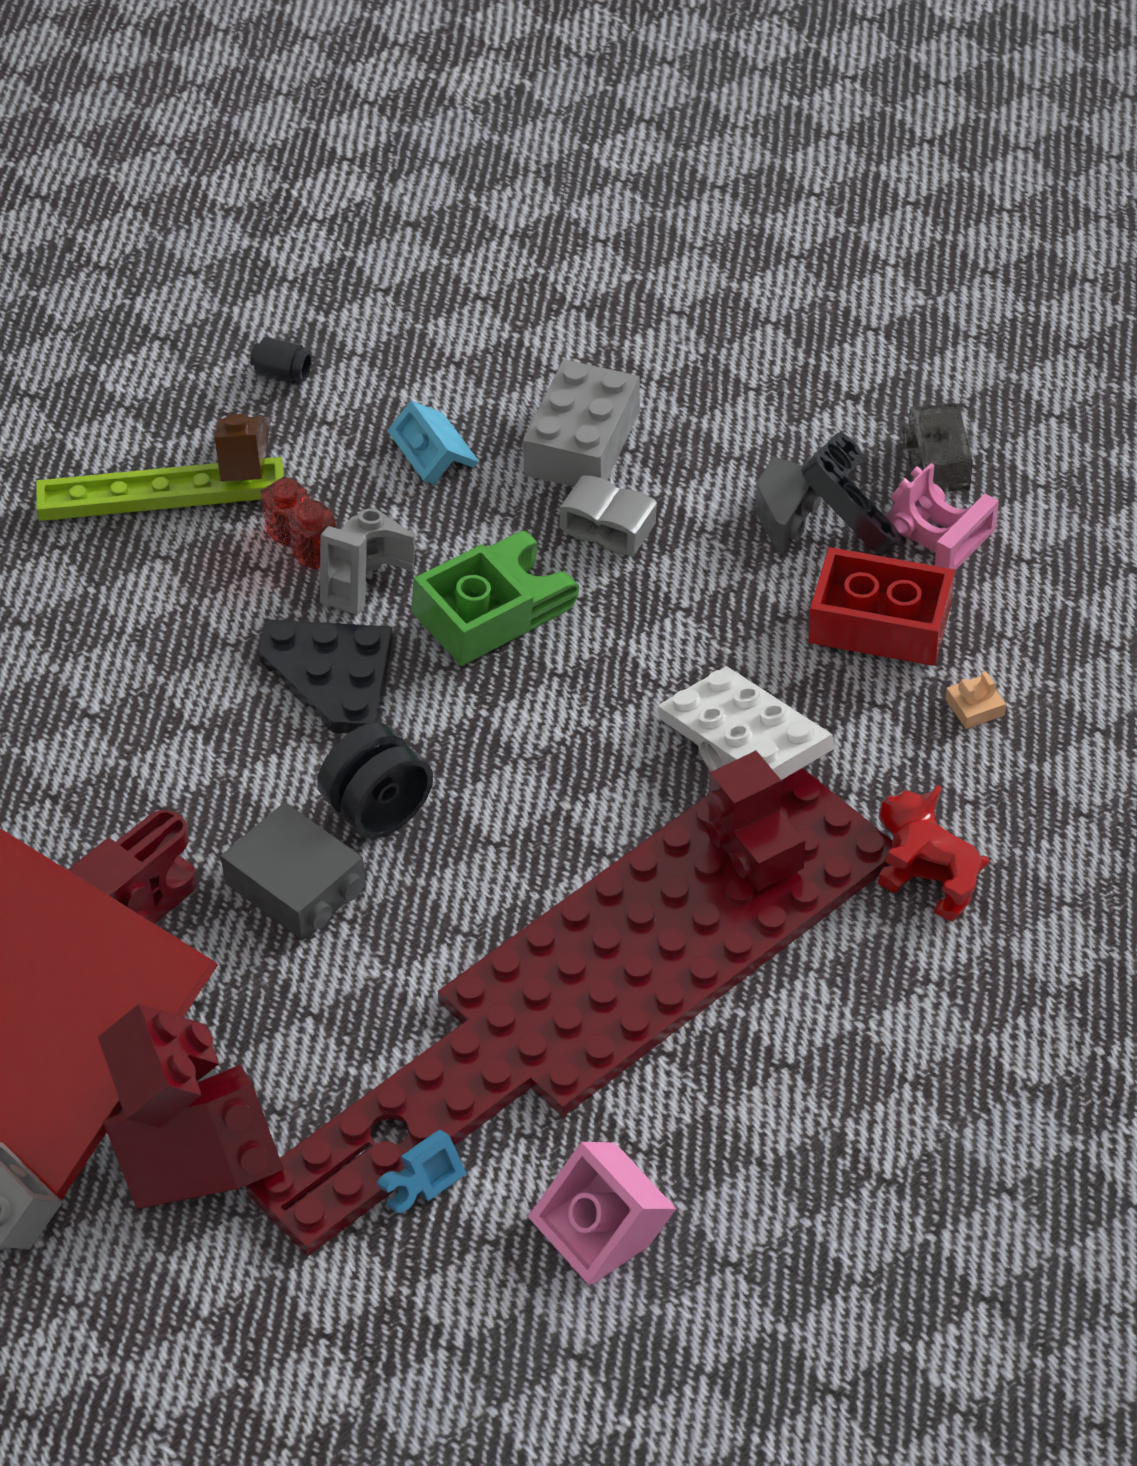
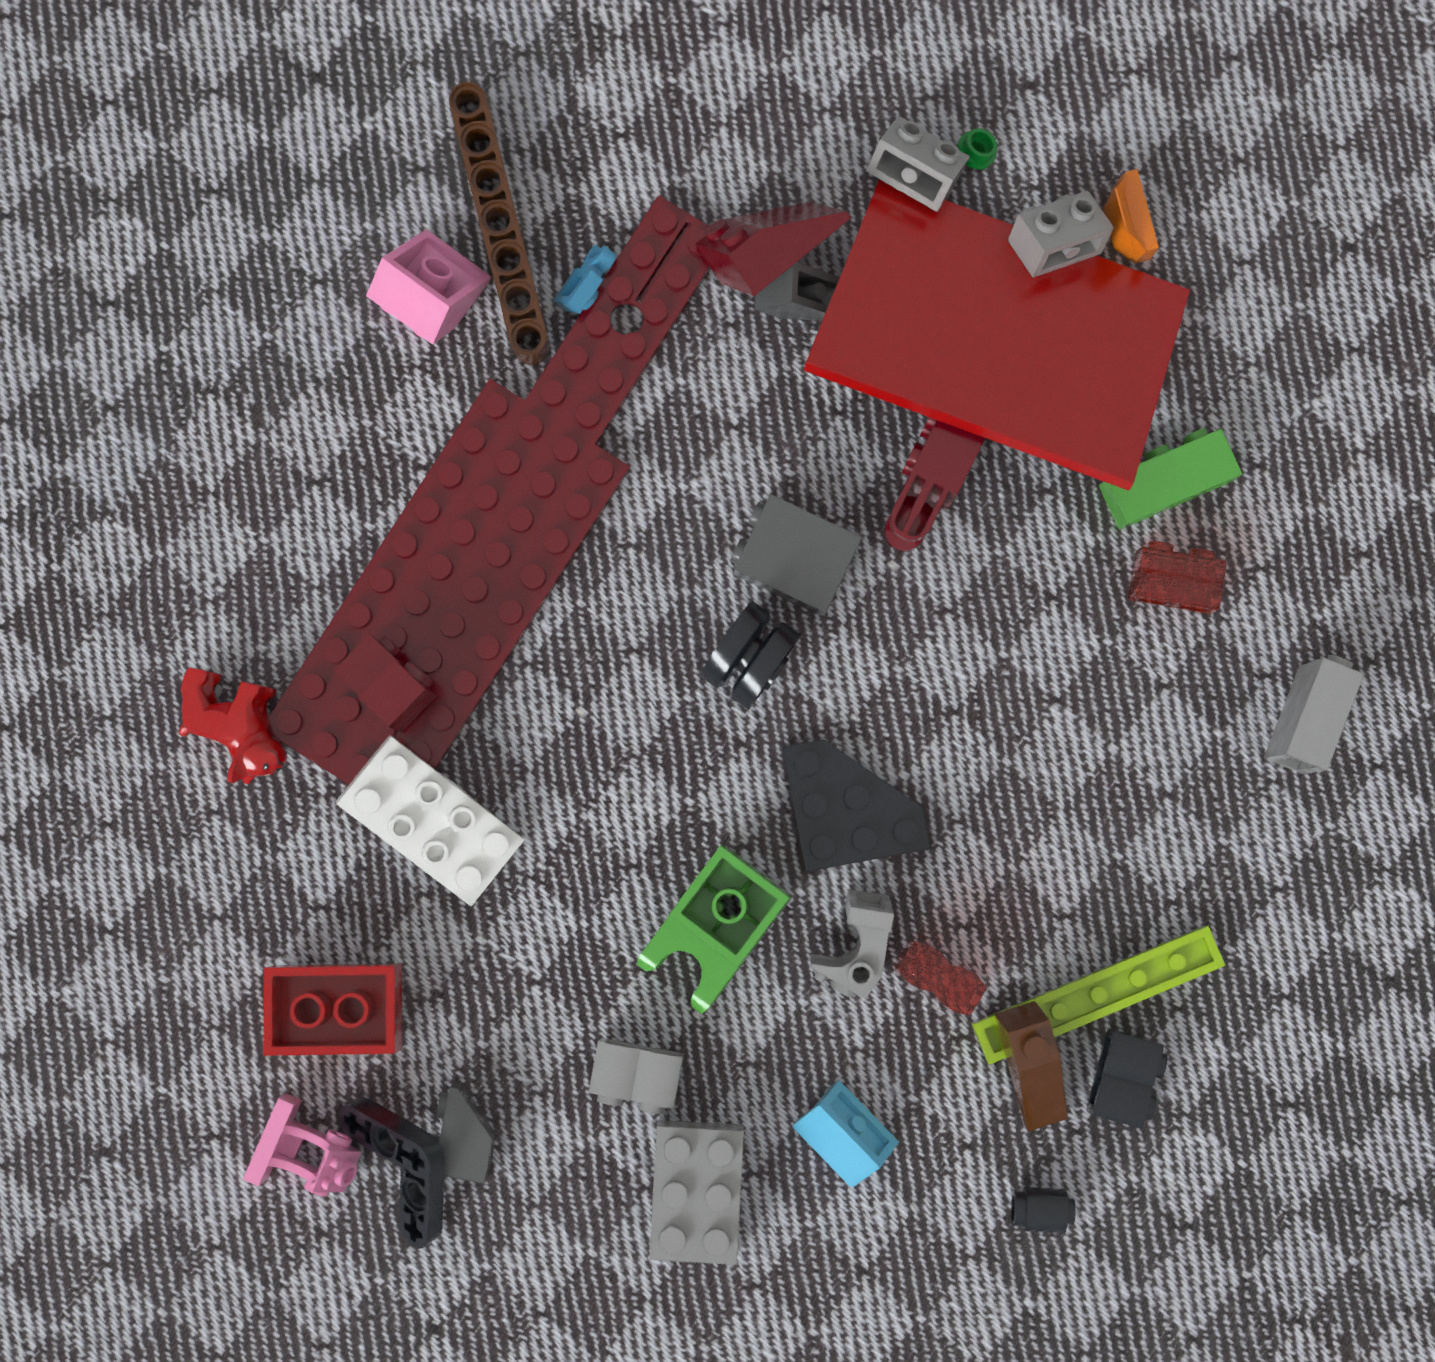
camera: 160 degrees right, 35 degrees up
(157, 1063) = (818, 243): dark red brick -> none
(165, 428) = (1126, 1078): none -> black brick
(499, 1275) = (495, 204): none -> reddish brown beam
(939, 438) = (319, 1280): clear smoke brick -> none
(976, 700) = (228, 930): light nougat tile -> none

